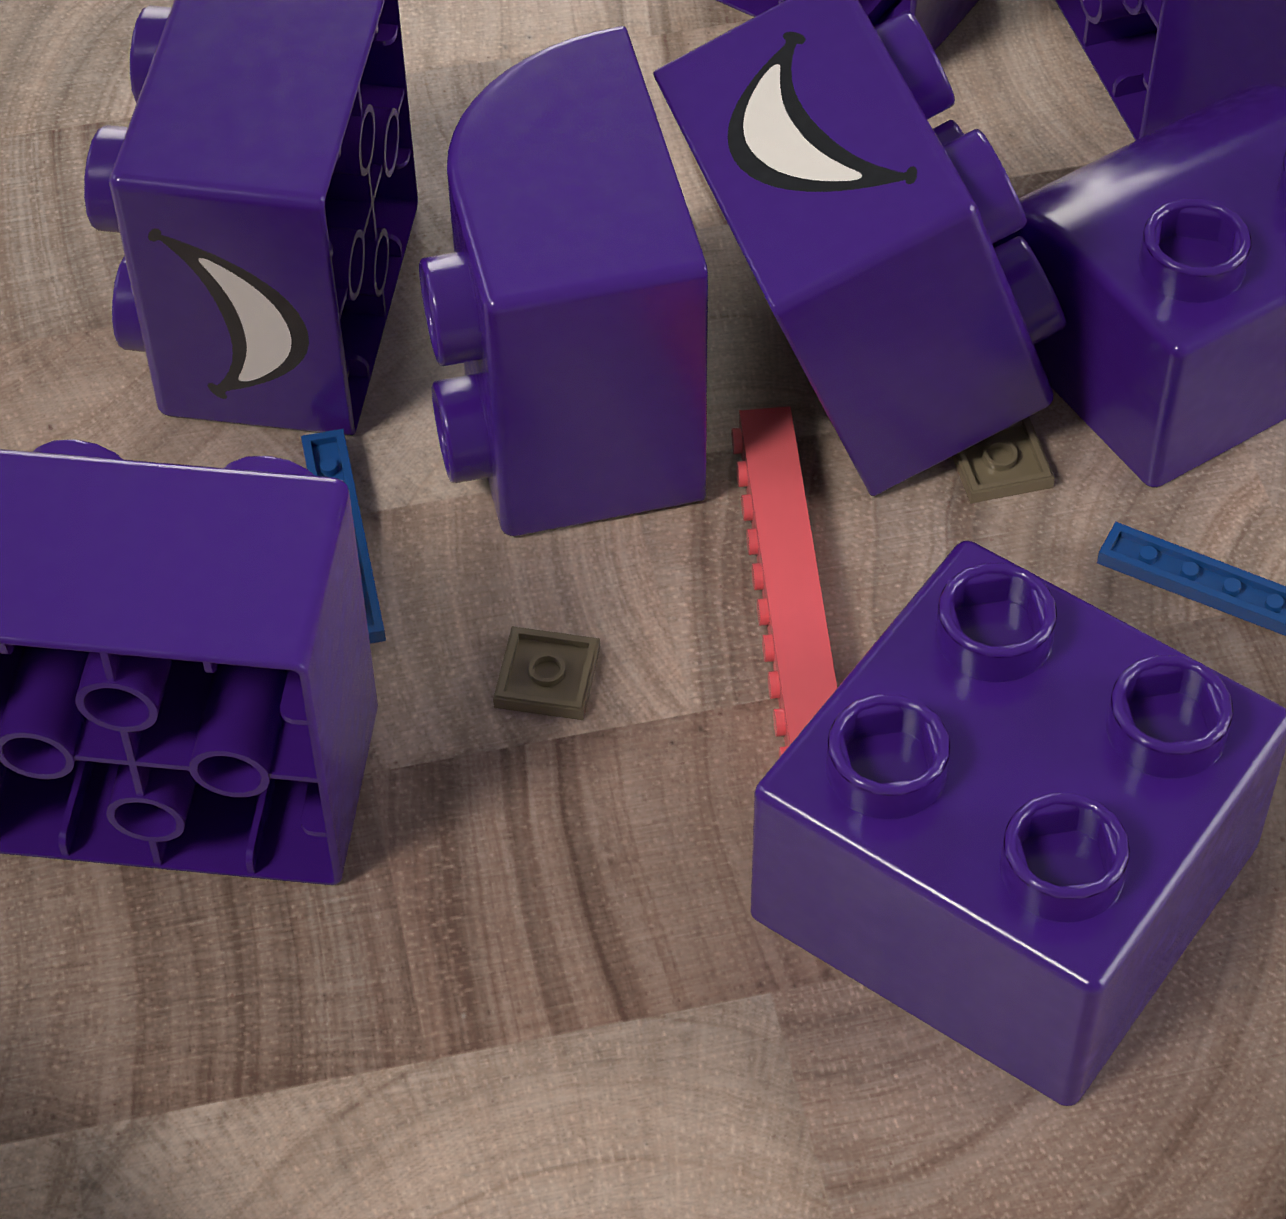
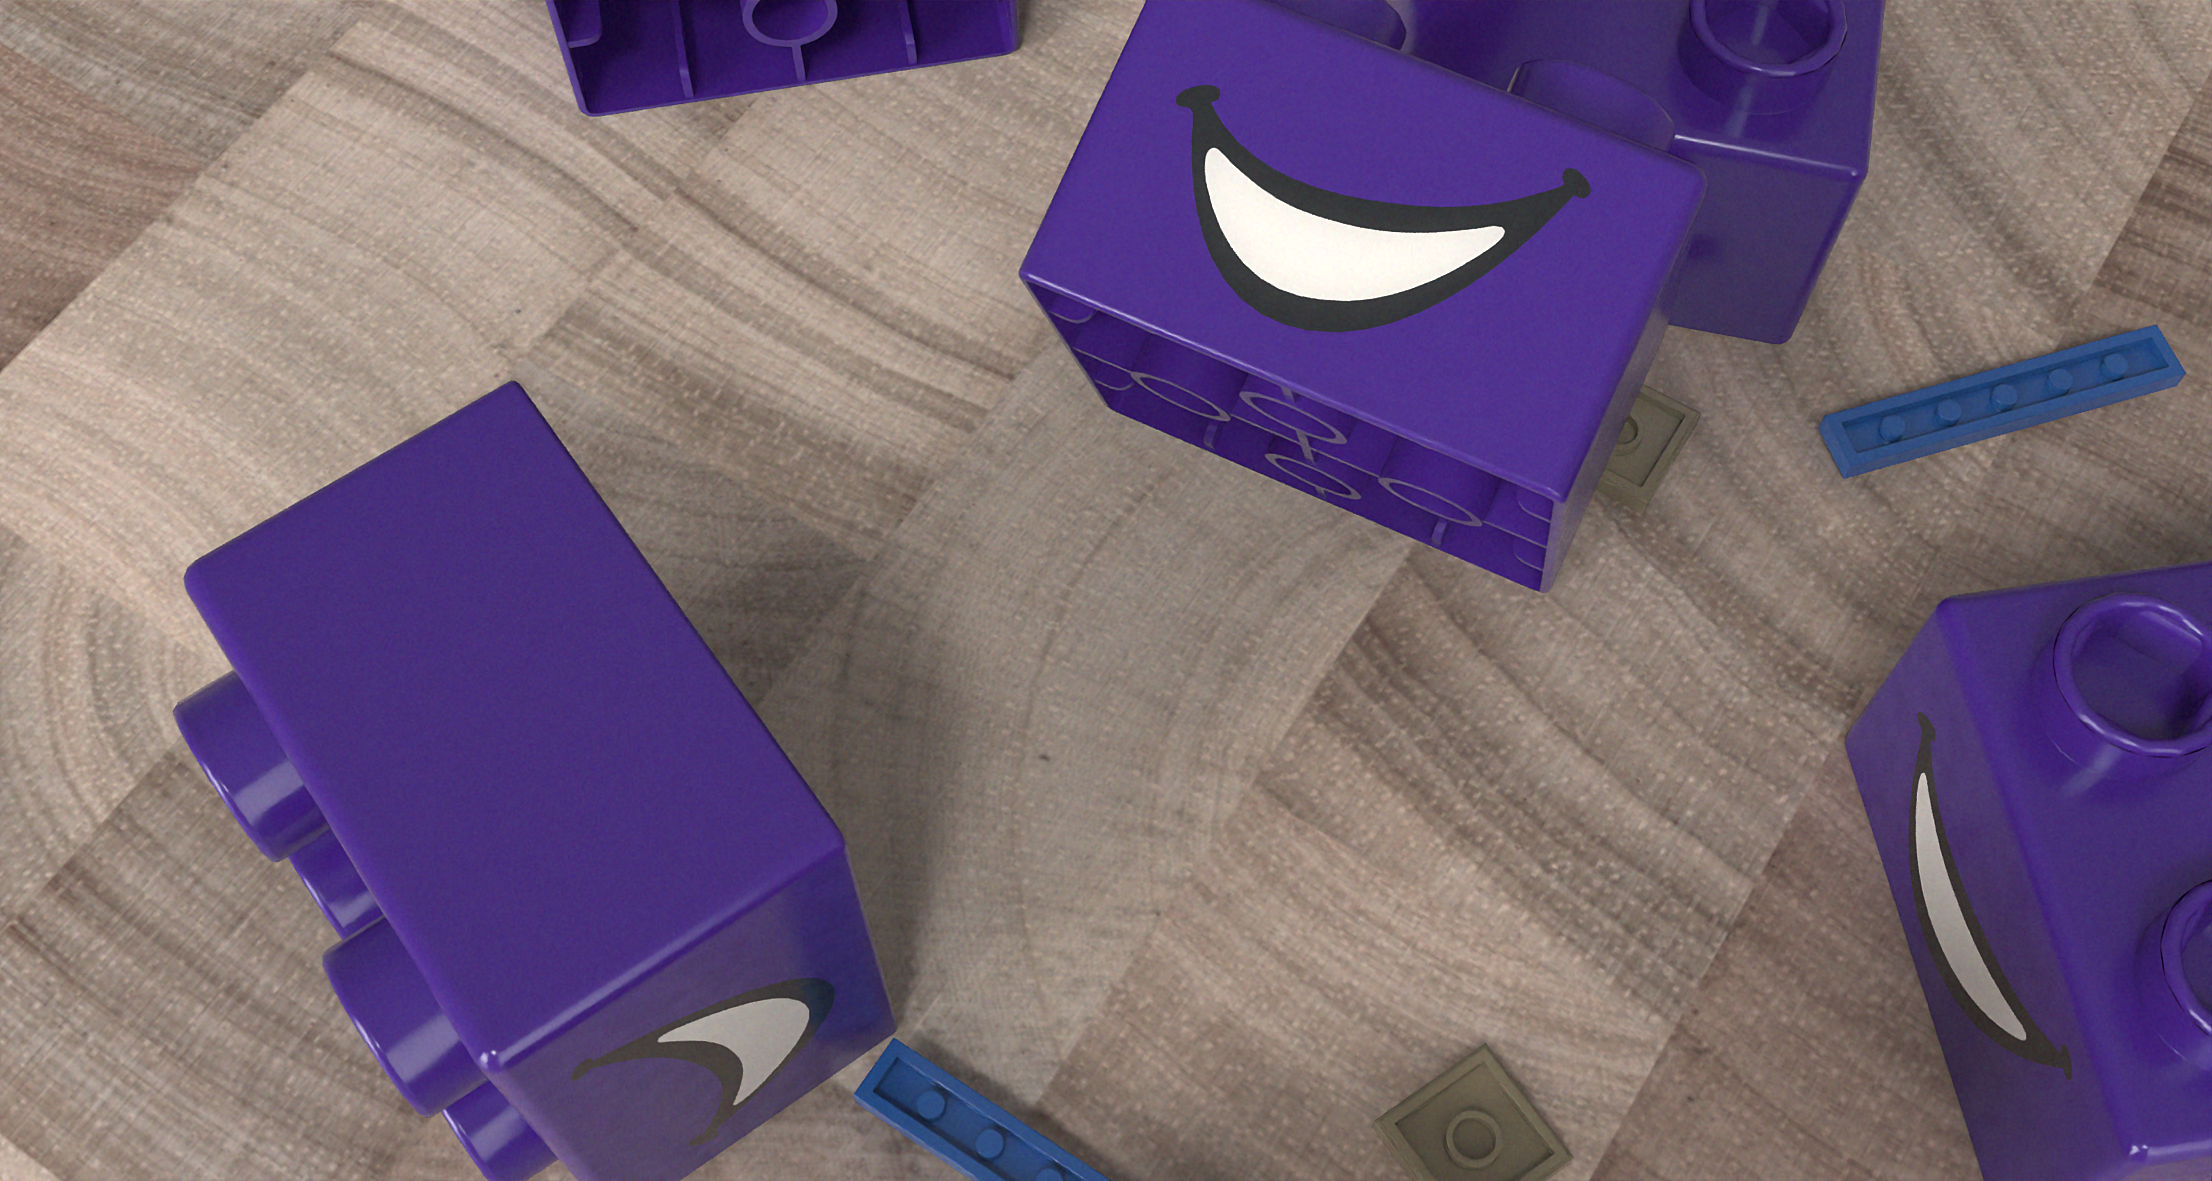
camera: 45 degrees left, 10 degrees up
(569, 297) = (1125, 622): dark purple piece -> none
(784, 568) = (1630, 802): coral brick -> none

